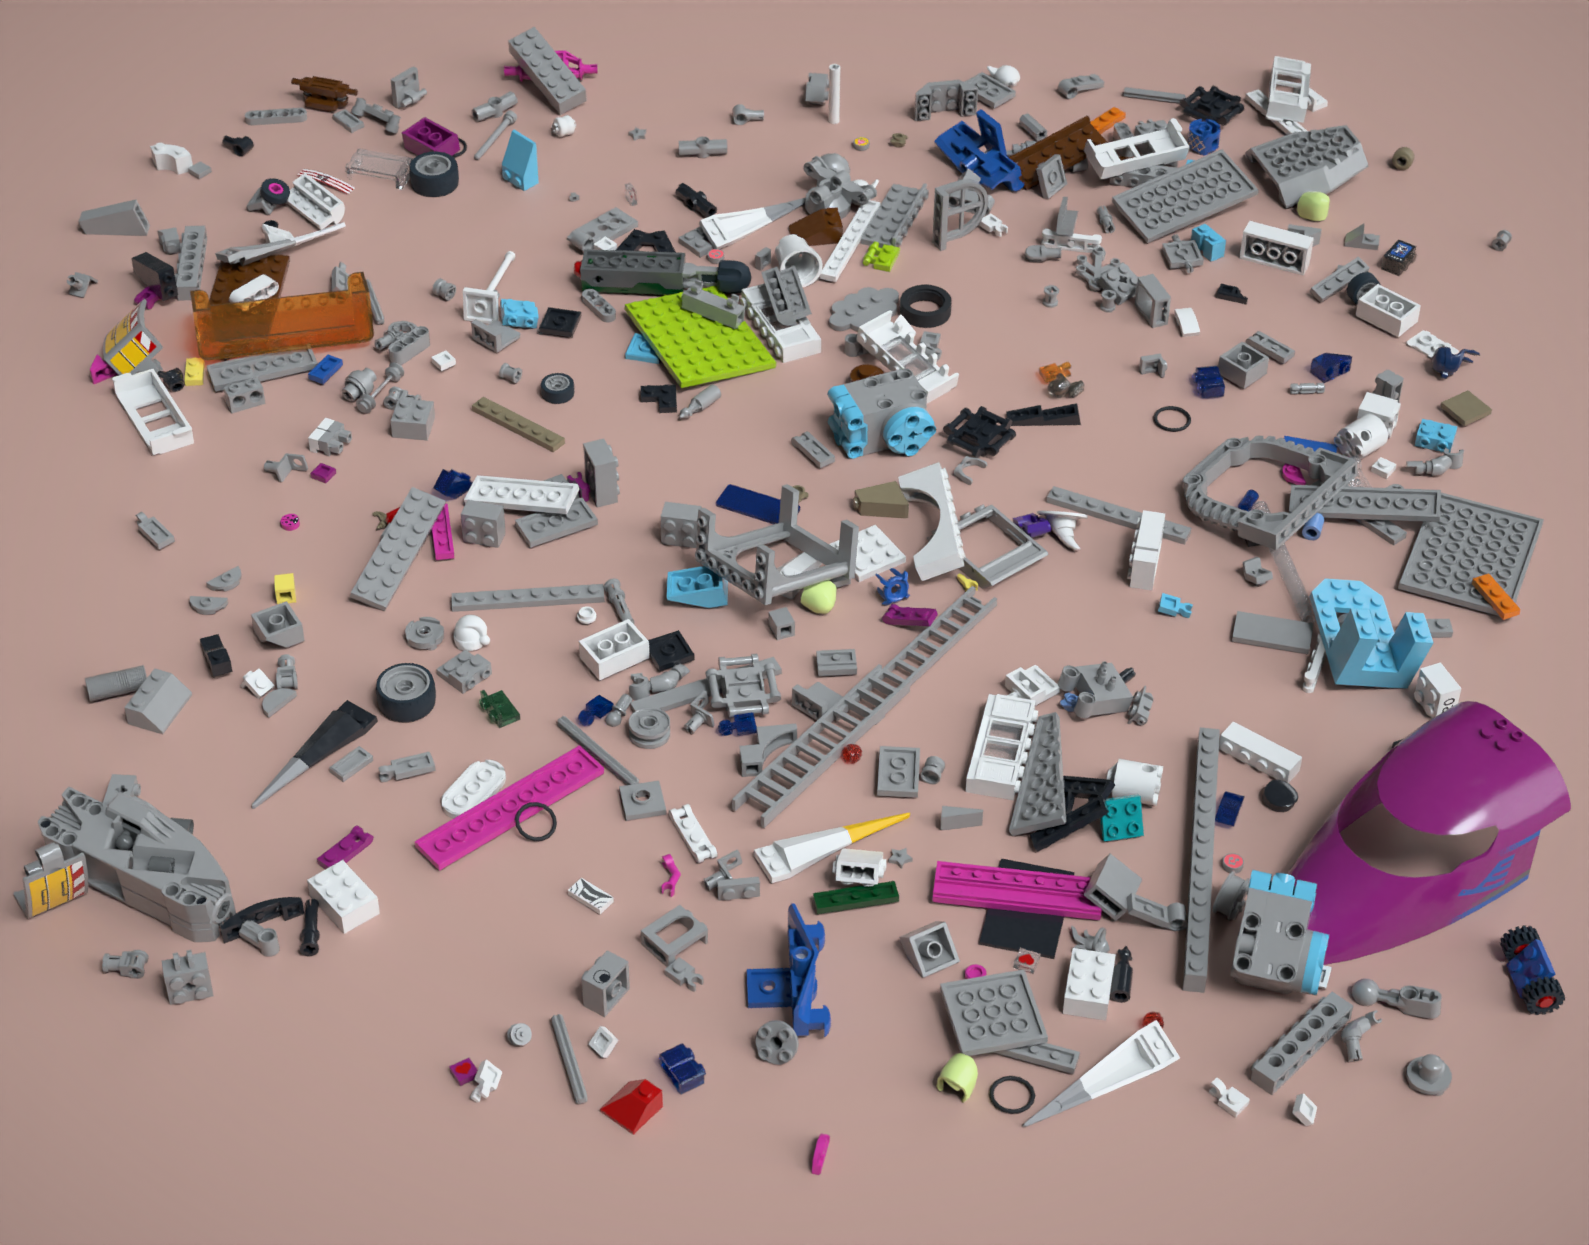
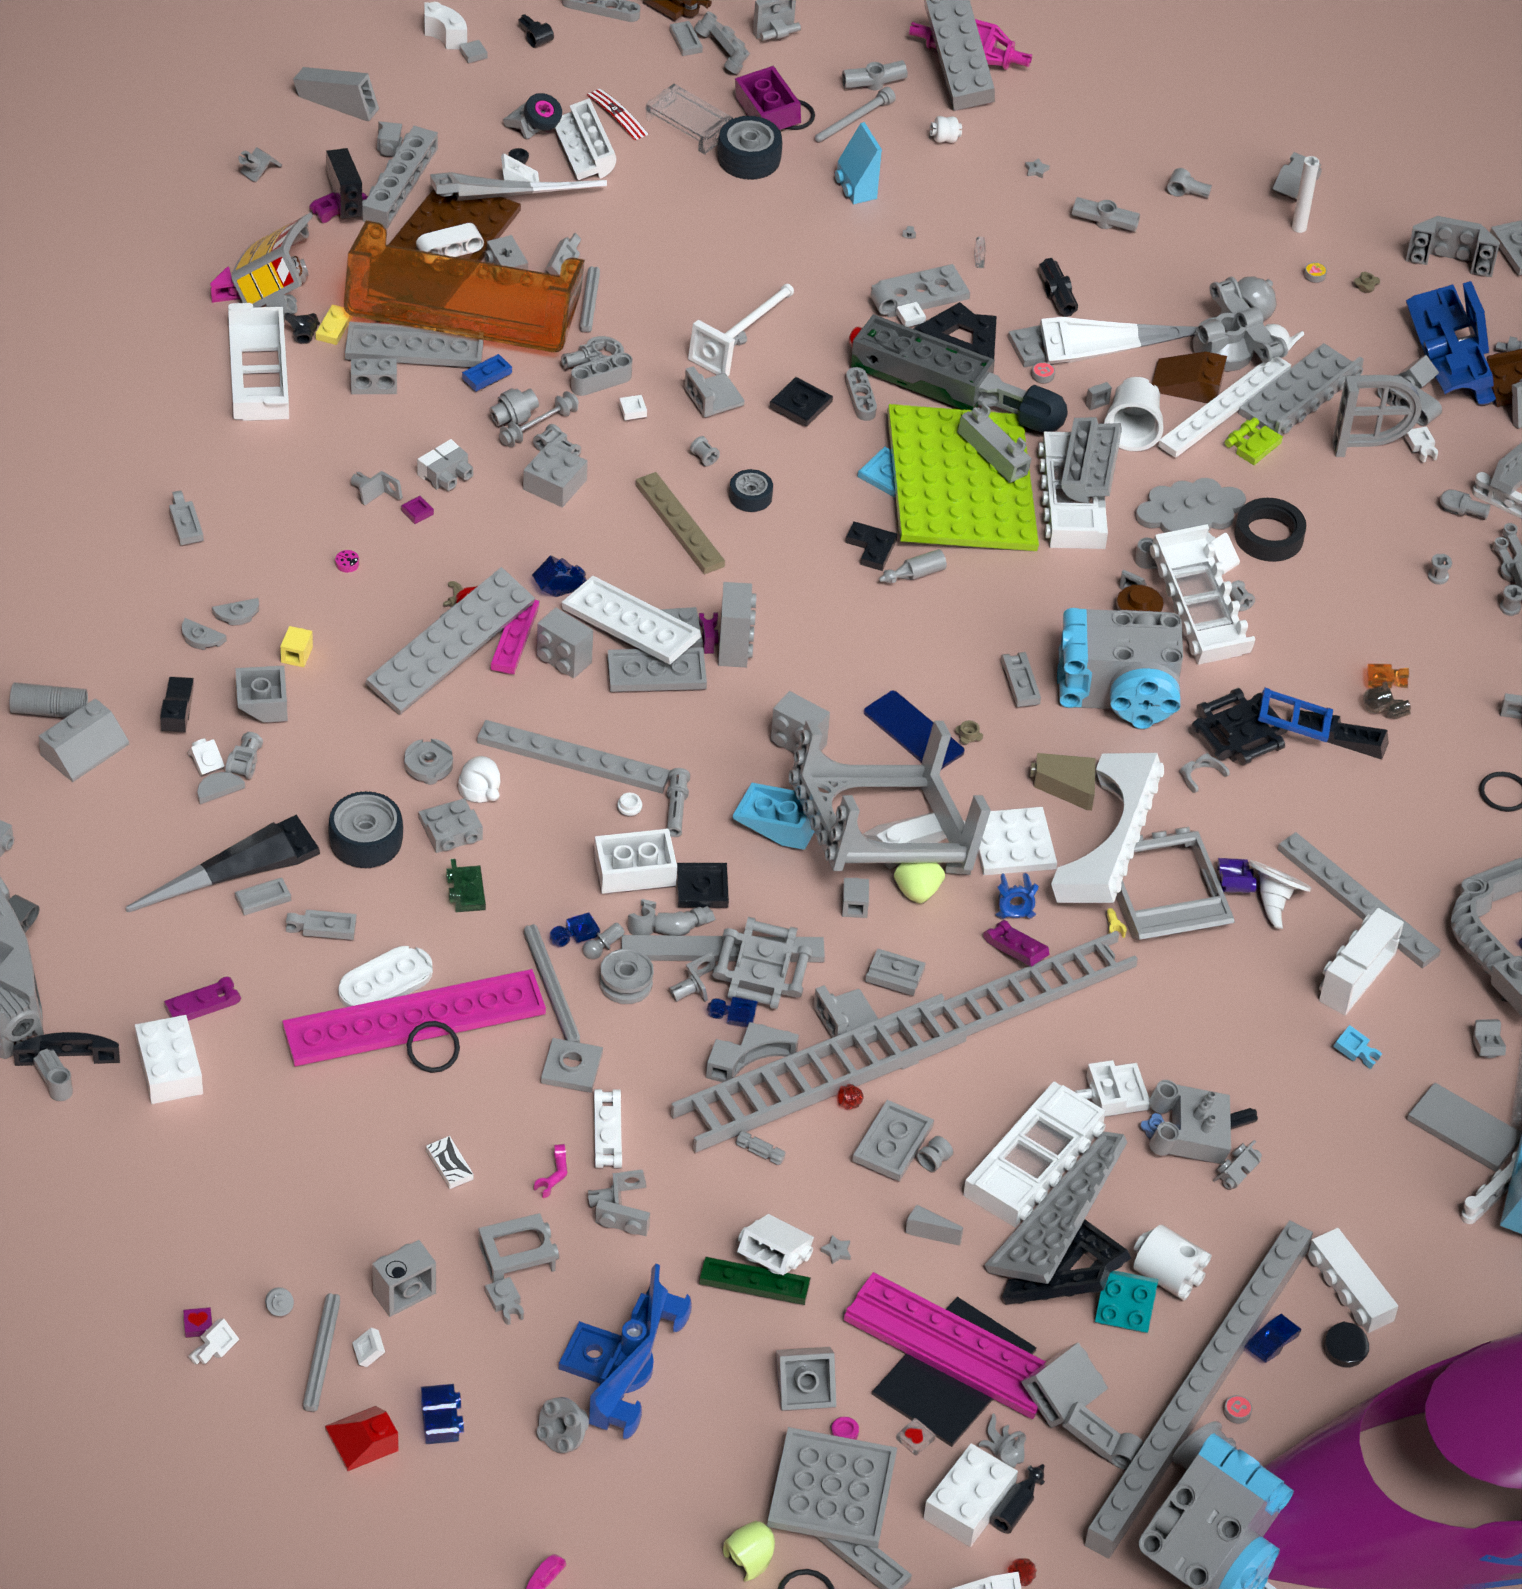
camera: 20 degrees right, 5 degrees up
(297, 286) = (505, 252): none -> light grey brick
(310, 933) = (111, 1090): black pin -> none
(444, 289) = (682, 310): light grey wheel -> none
(519, 313) = (756, 373): medium azure plate -> none
(794, 854) = (716, 1199): white plate -> none
(808, 808) = (760, 1147): none -> light grey axle
(851, 364) = (1129, 579): none -> light grey slope
(932, 338) = (1252, 578): light grey plate -> none
(1037, 419) = (1293, 725): none -> blue window

